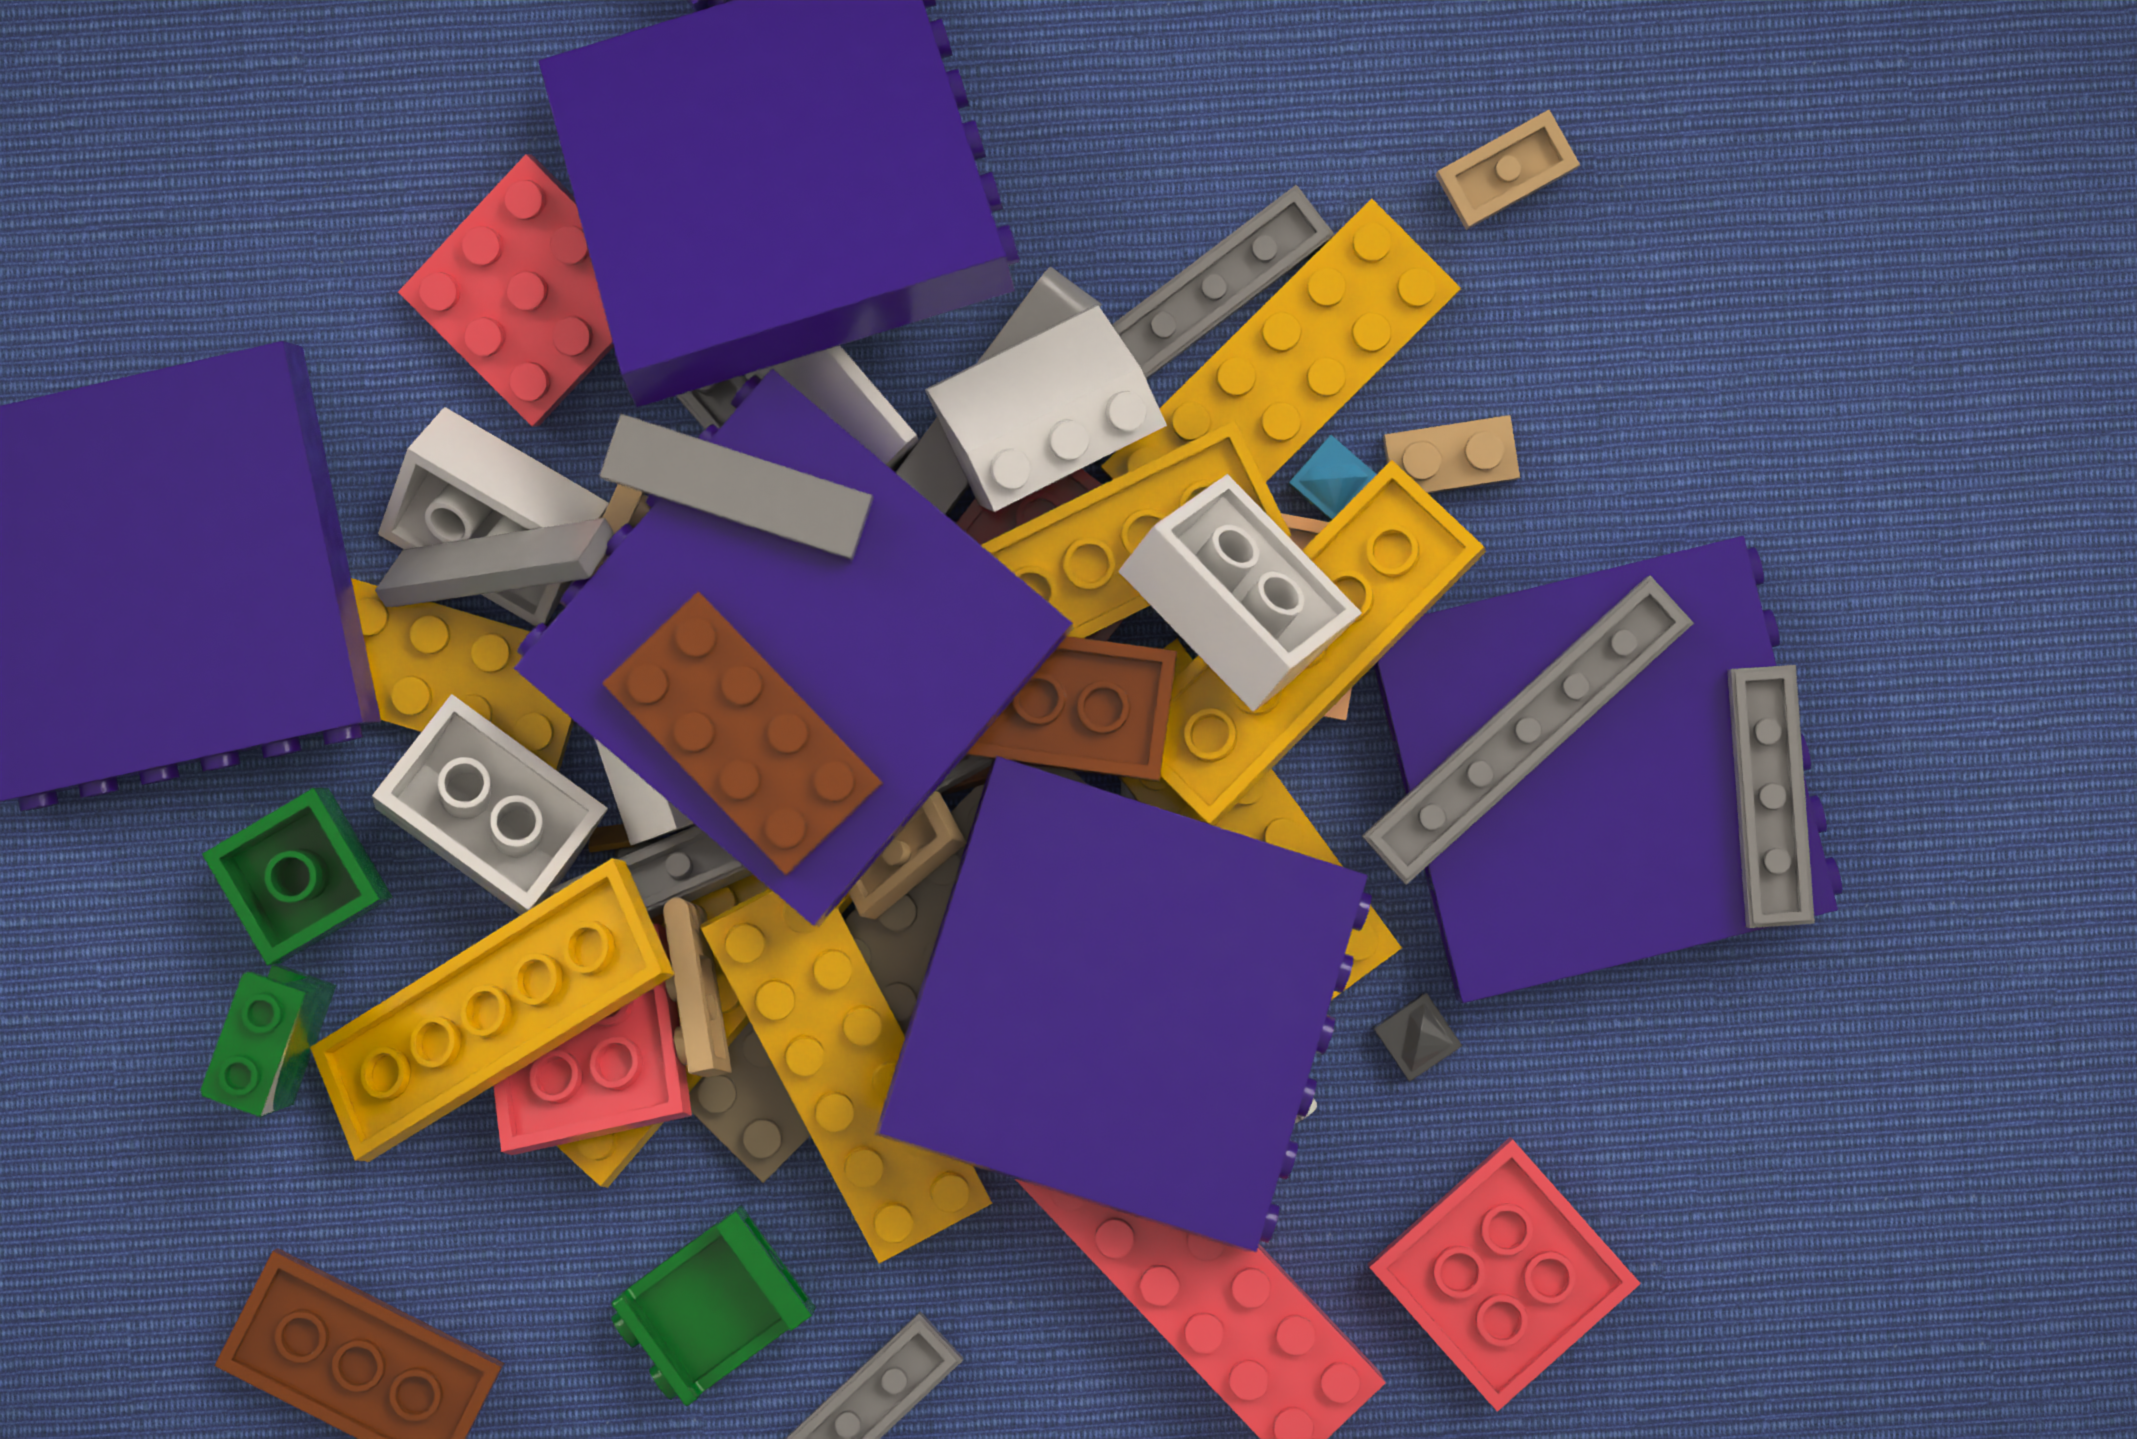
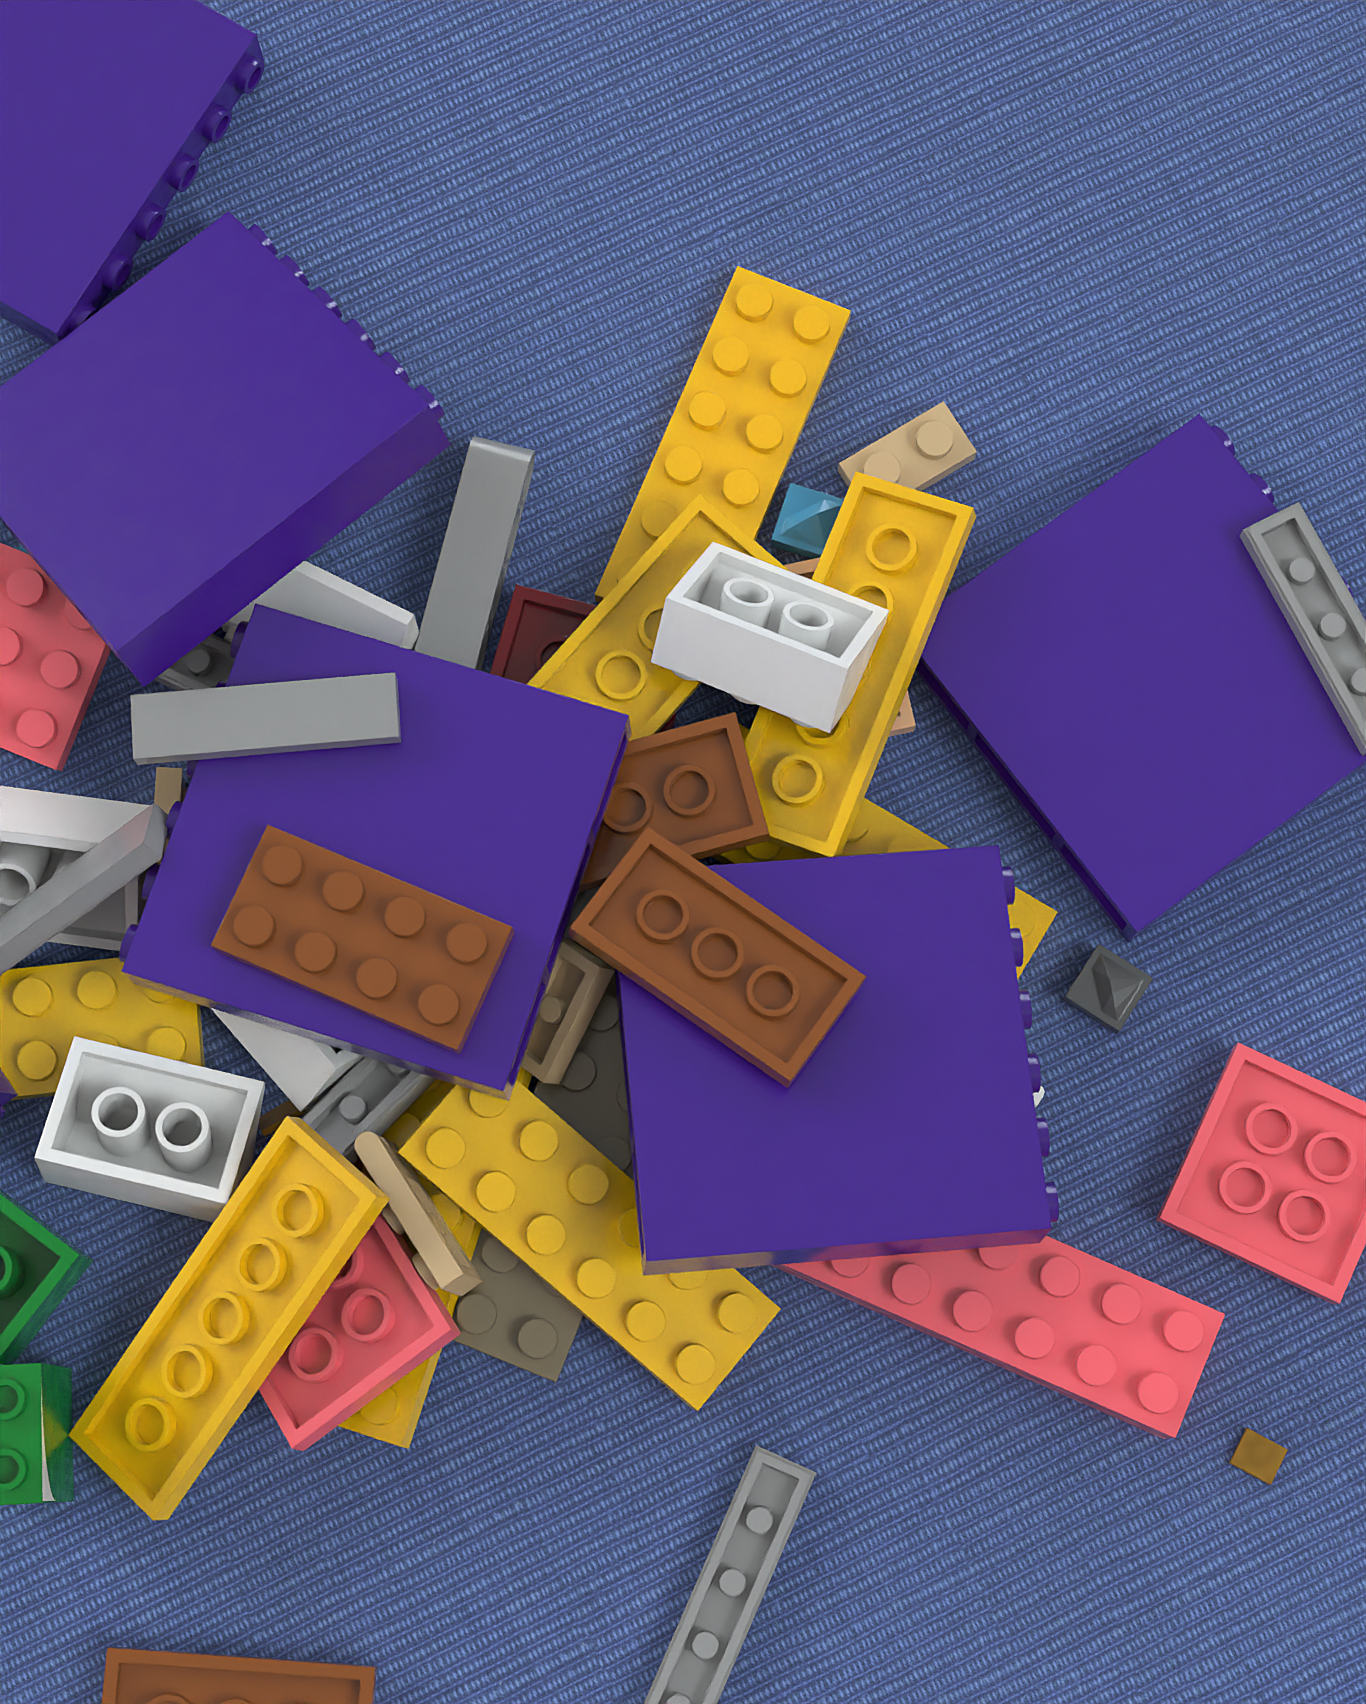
camera: 25 degrees left, 10 degrees down
(711, 1306) = (554, 1523): green panel -> none
(1045, 408) = (521, 552): white slope -> none
(1059, 880) = (717, 956): none -> dark orange plate
(1222, 281) = (629, 401): light grey tile -> none
(1507, 169) = (846, 194): tan plate -> none
(1527, 729) = (1083, 661): light grey tile -> none

